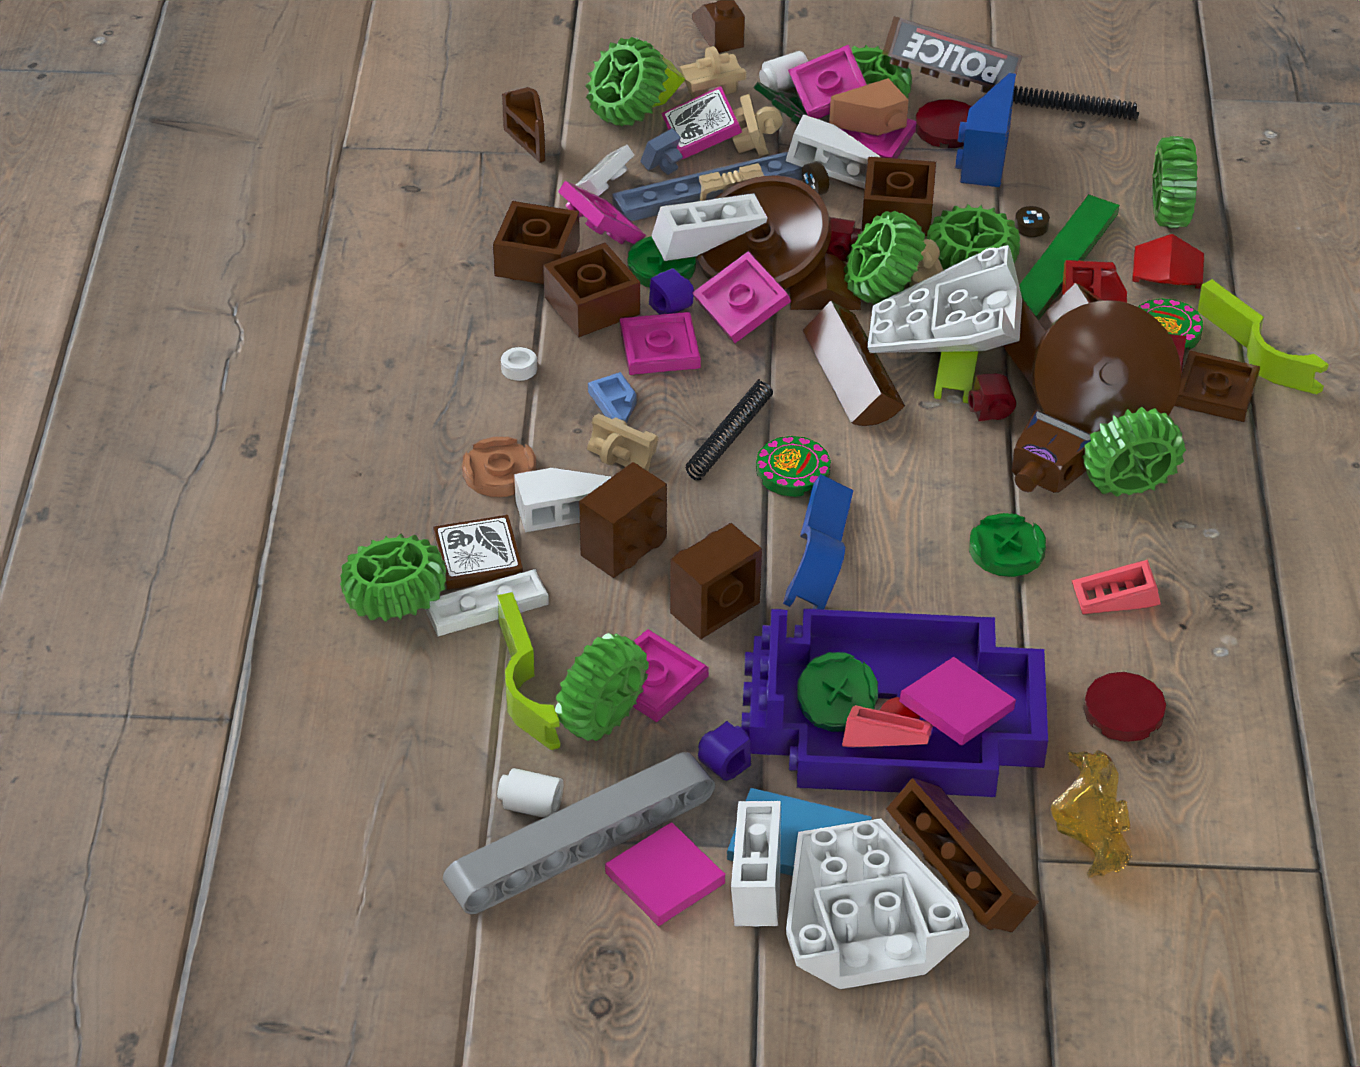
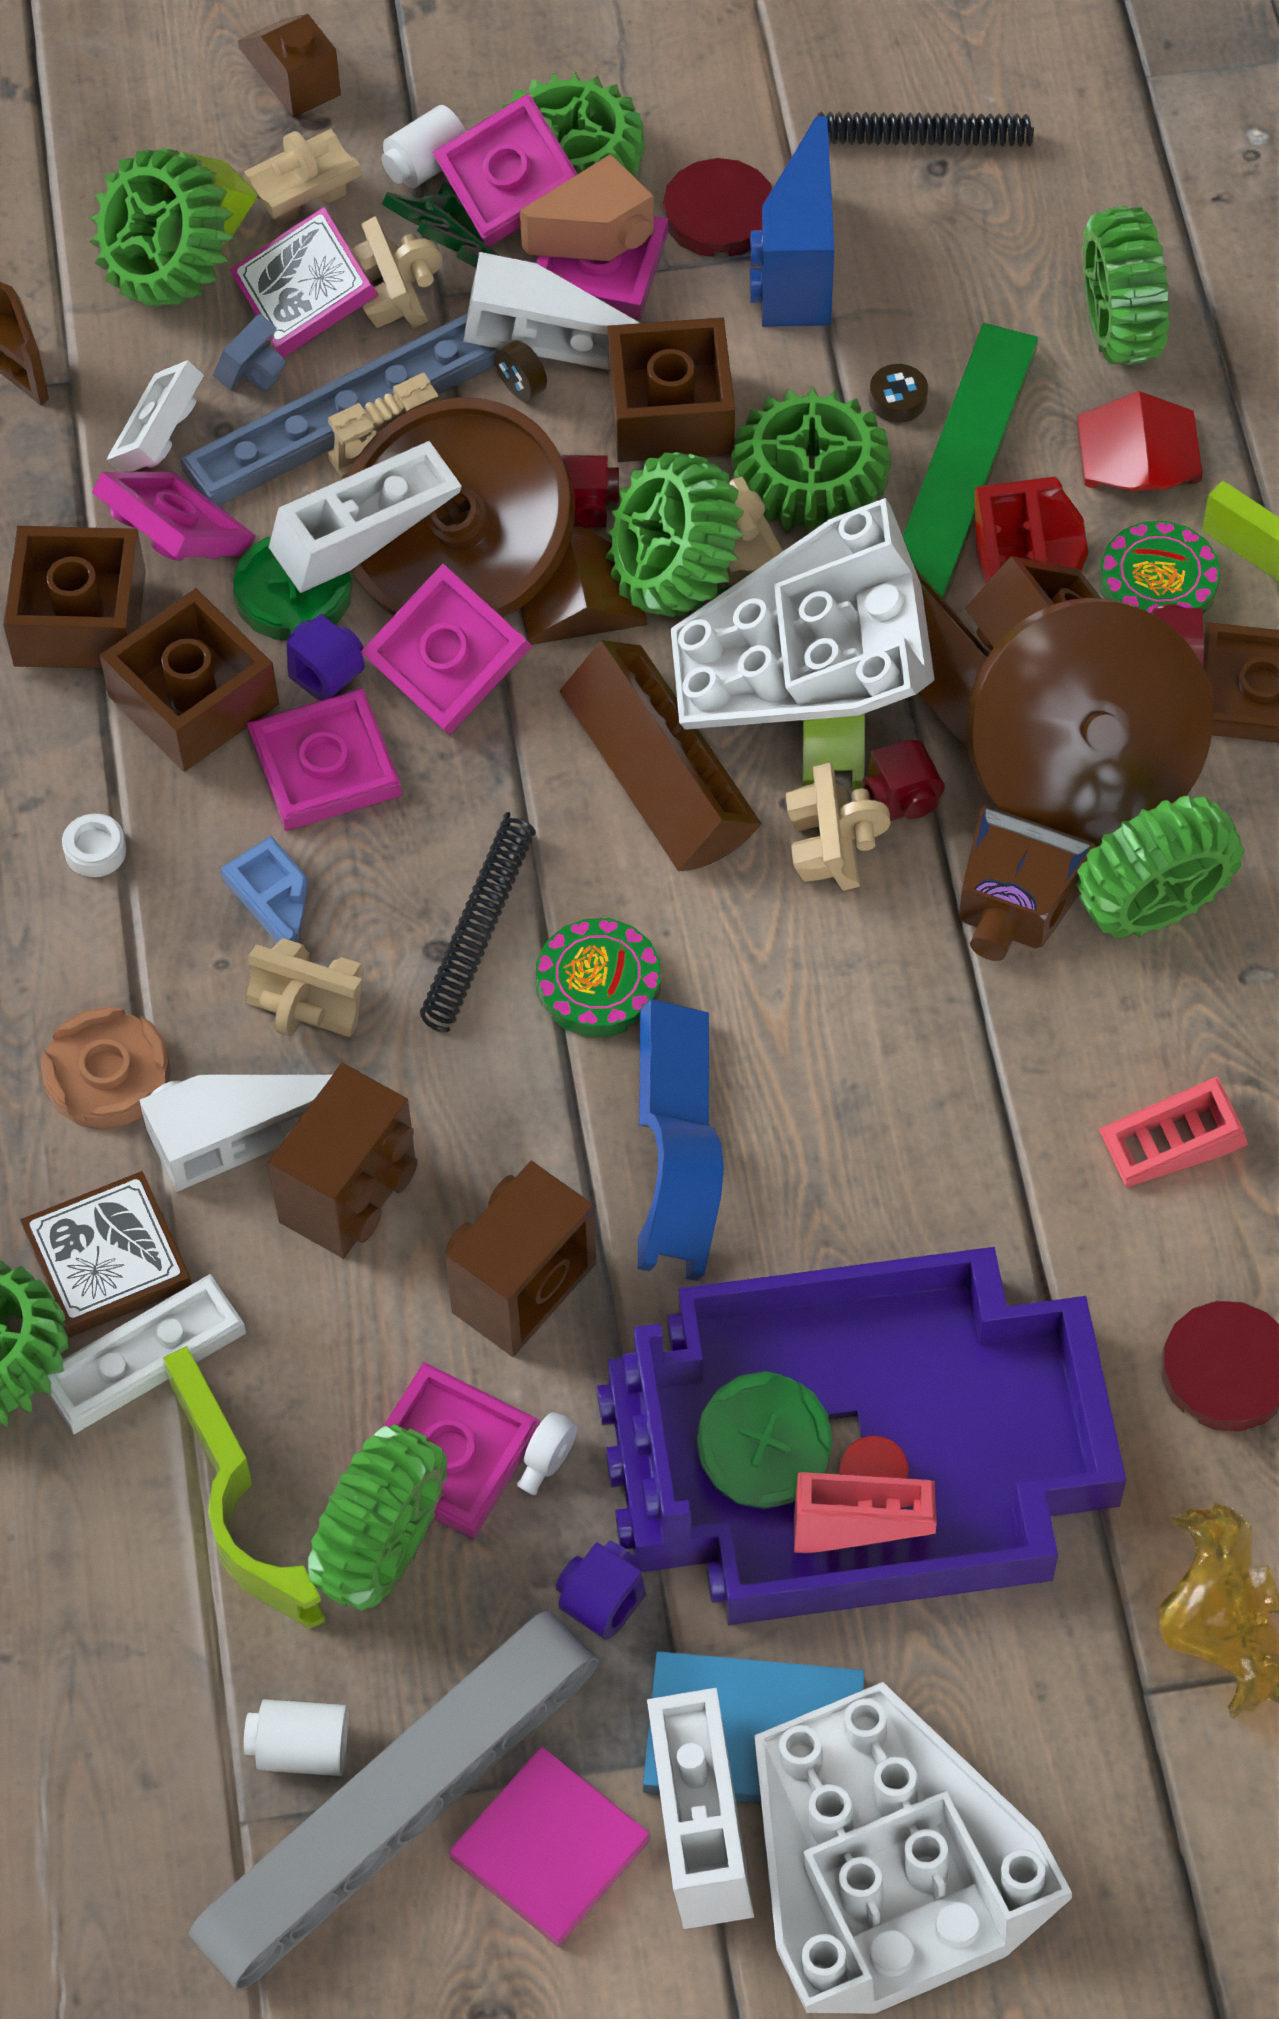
camera: 10 degrees left, 15 degrees up
(709, 681) = (547, 1450): none -> white piece
(945, 413) = (840, 823): none -> tan hips
(948, 54) = (705, 81): brick -> none
(957, 700) = (966, 1433): dark pink tile -> none
(962, 856) = (1027, 1729): reddish brown brick -> none
(1007, 545) = (980, 1073): green tile -> none

